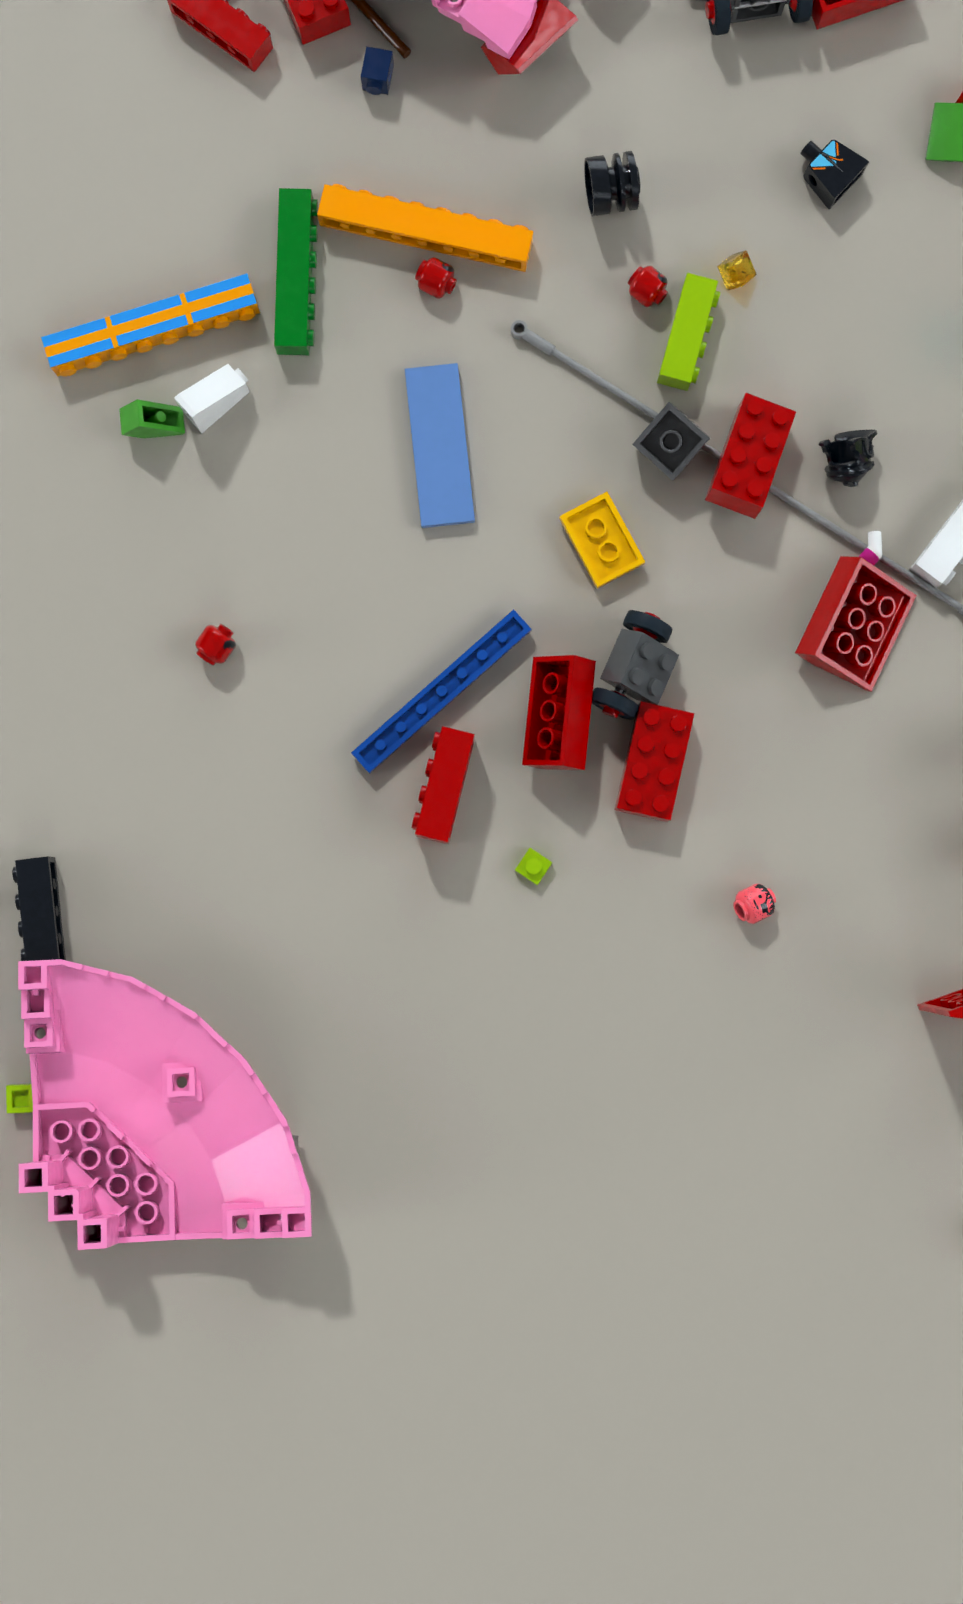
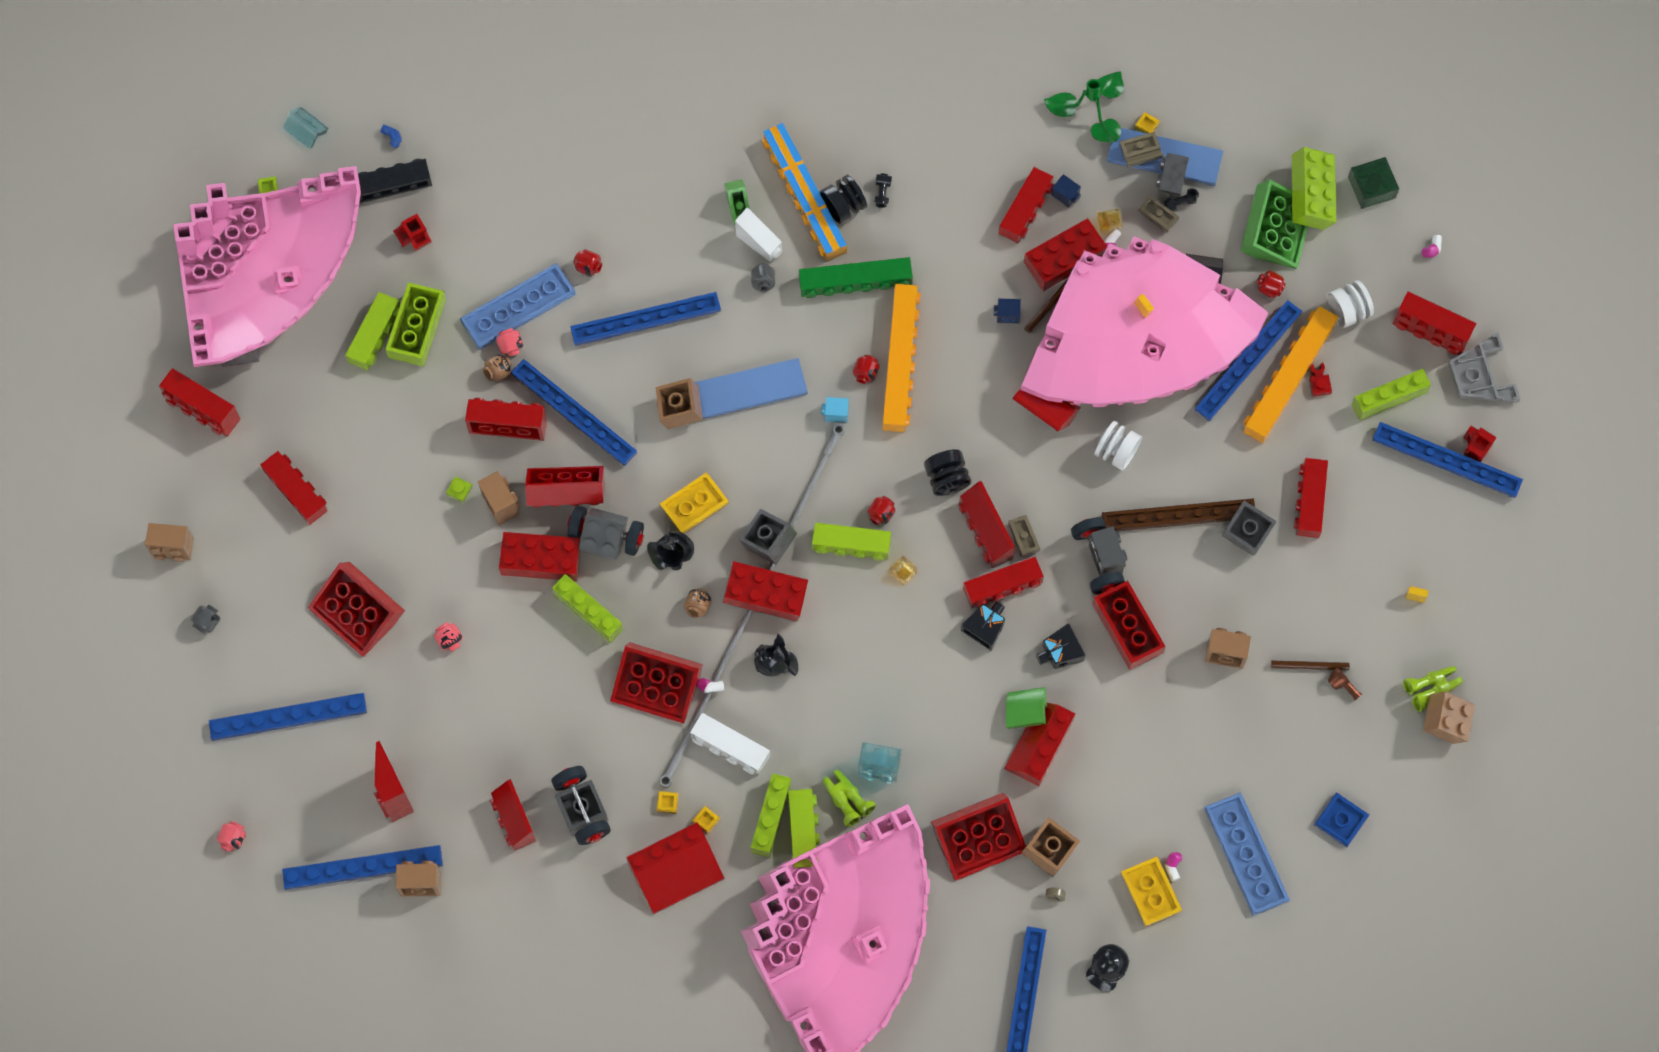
camera: 80 degrees right, 15 degrees down
(128, 892) = (412, 232): none -> red brick
(151, 214) = (883, 181): none -> black bar
(174, 265) = (844, 197): none -> black wheel
(265, 753) = (518, 306): none -> medium blue tile
(275, 964) = (373, 331): none -> lime brick
(276, 399) = (763, 277): none -> dark grey head
(276, 901) = (416, 324): none -> lime brick
(313, 574) = (645, 318): none -> blue plate
(322, 769) = (509, 342): none -> coral head
(350, 1234) = (199, 402): none -> red brick
(359, 791) = (497, 368): none -> medium nougat head
(455, 539) = (679, 403): none -> medium nougat brick
(491, 326) = (835, 409): none -> medium azure brick
(501, 1102) = (293, 487): none -> red brick
(562, 809) = (499, 497): none -> medium nougat brick
(565, 1292) = (169, 542): none -> medium nougat brick
(673, 577) = (671, 550): none -> black helmet
(684, 1247) = (205, 619): none -> dark grey head
(693, 142) = (987, 525): none -> red slope
(694, 1029) = (355, 608): none -> red slope
(710, 101) = (1024, 535): none -> dark tan plate
(740, 704) = (587, 608): none -> lime brick
(750, 552) = (697, 603): none -> medium nougat head
(775, 137) = (1003, 582): none -> red brick
(838, 1142) = (287, 716): none -> blue plate
(878, 75) = (1061, 649): none -> black torso

